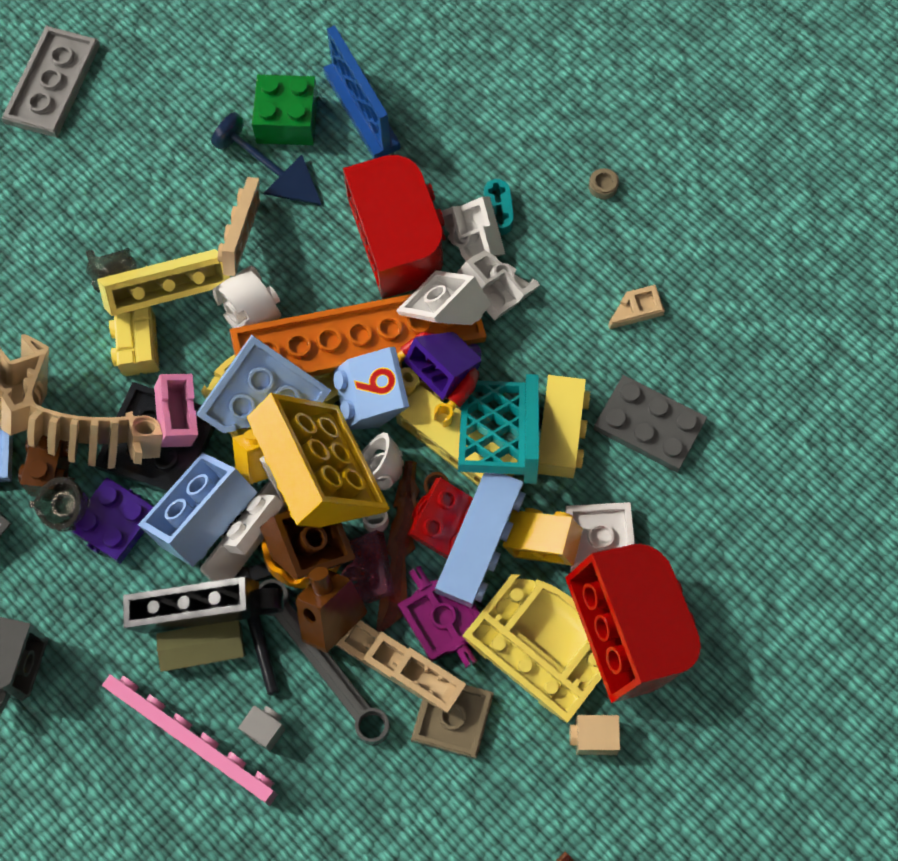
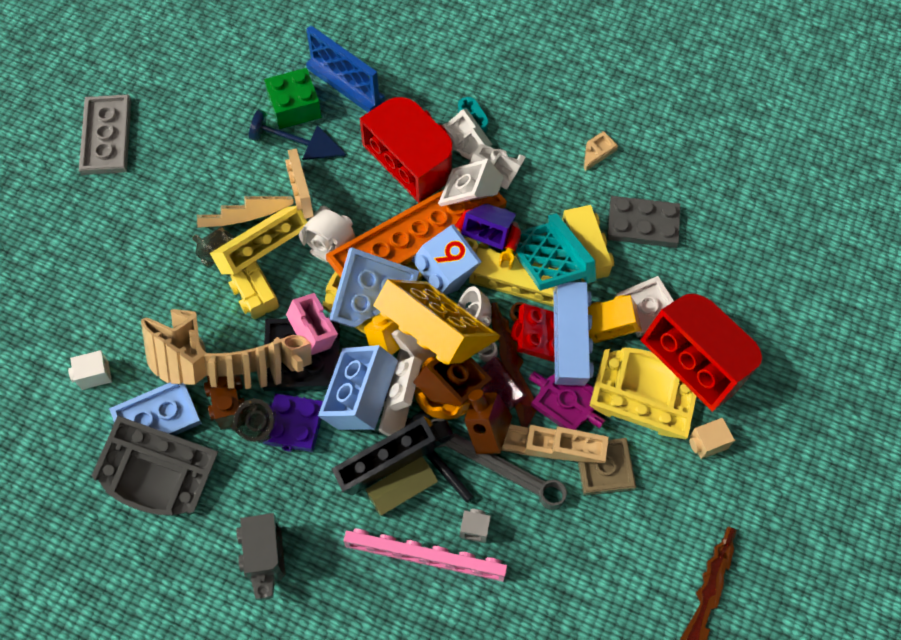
camera: 25 degrees left, 5 degrees down
(177, 237) = (253, 208): none -> tan slope
(603, 183) = (536, 78): dark tan tile -> none

